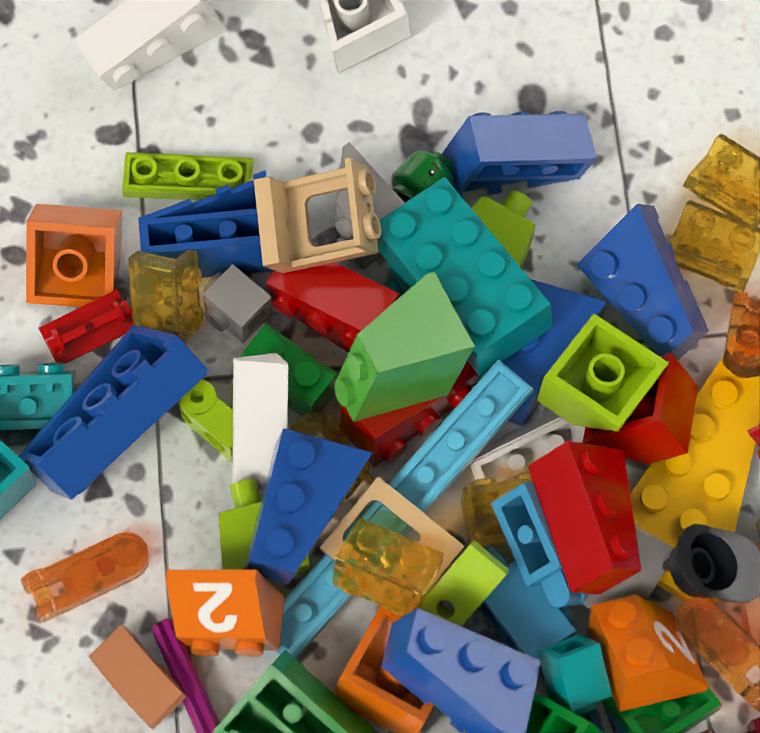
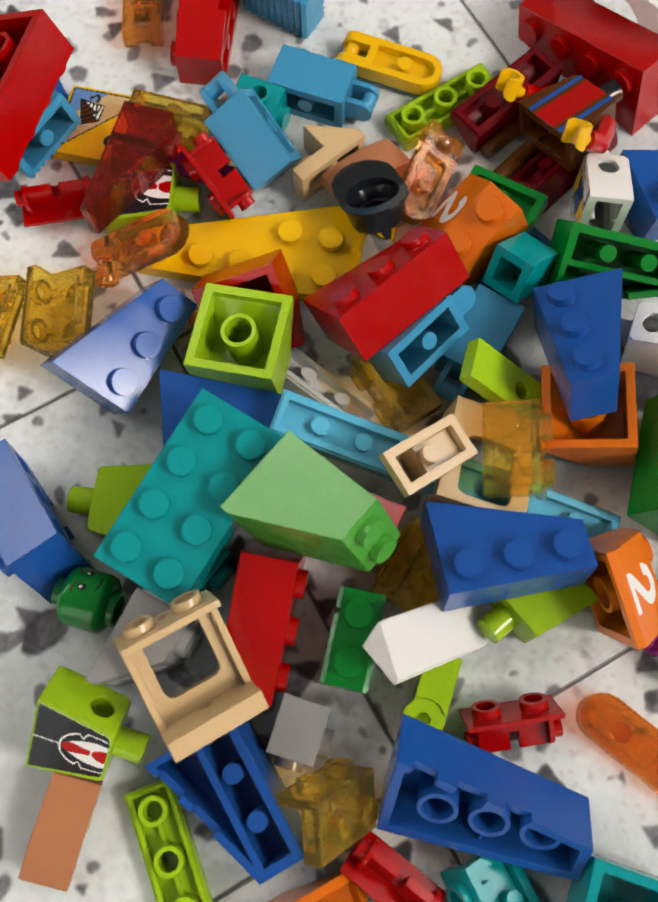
camera: 110 degrees left, 5 degrees up
(166, 456) = (533, 717): none -> red hinge
(250, 104) = (60, 831): none -> nougat slope
(315, 137) = (82, 728): none -> torso
(411, 470) = (428, 455): none -> tan slope

